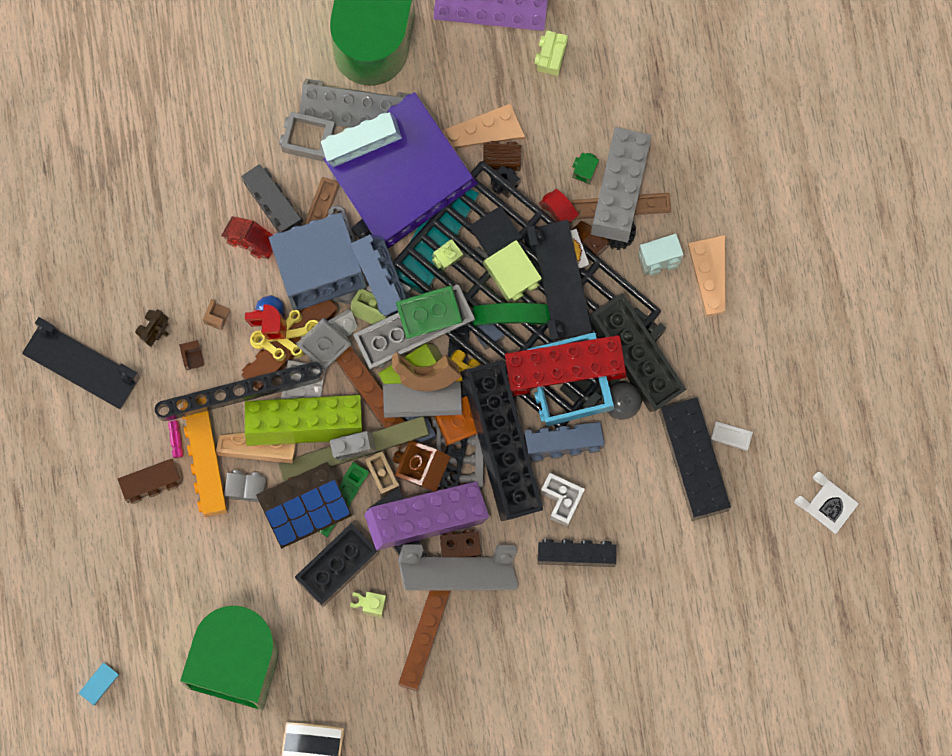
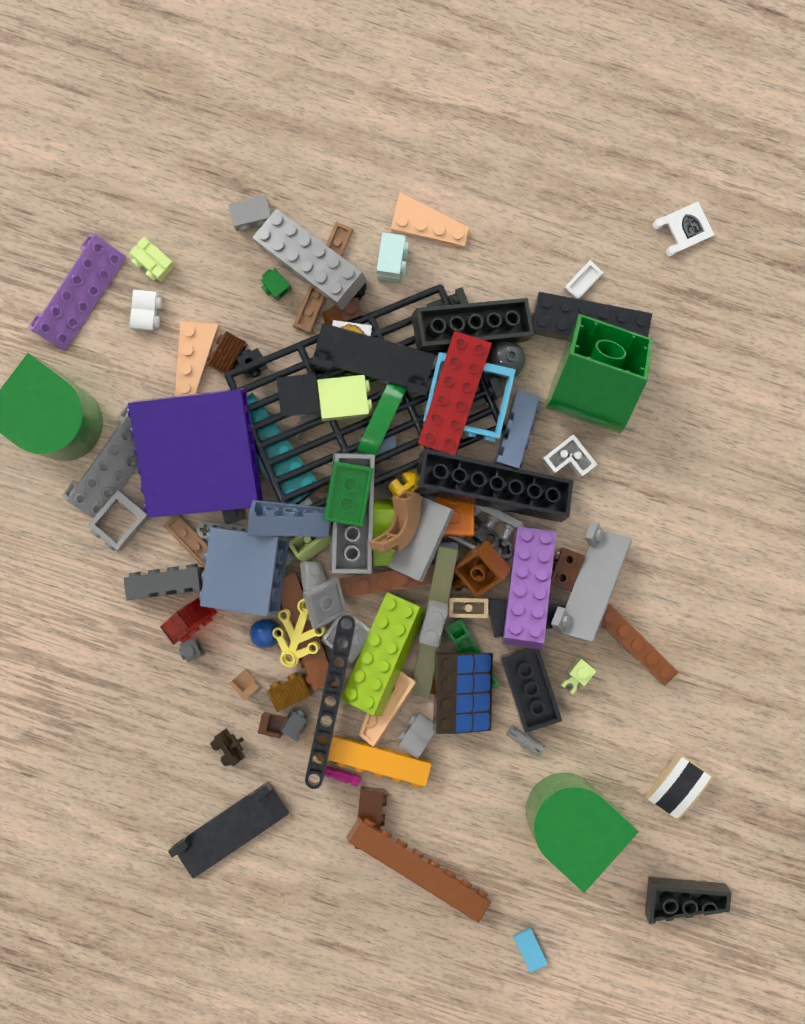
camera: 60 degrees left, 10 degrees up
(125, 544) = (418, 869): none -> dark orange brick
(202, 374) = (294, 724): none -> dark grey brick
(224, 253) = (191, 649): none -> dark grey brick
(228, 355) = (289, 692): none -> pearl gold brick
(272, 322) = (279, 639): red brick -> none
(287, 586) = (525, 740): none -> light grey pin
(361, 139) = (148, 474): light aqua brick -> none
(447, 255) = (299, 450): yellowish green brick -> none
(504, 68) = (144, 310): none -> white brick
(558, 206) = (301, 326): red brick -> none
(576, 554) = (624, 470): black brick -> none
(636, 115) = (249, 213): none -> light grey brick
(648, 481) = (600, 374): none -> green brick

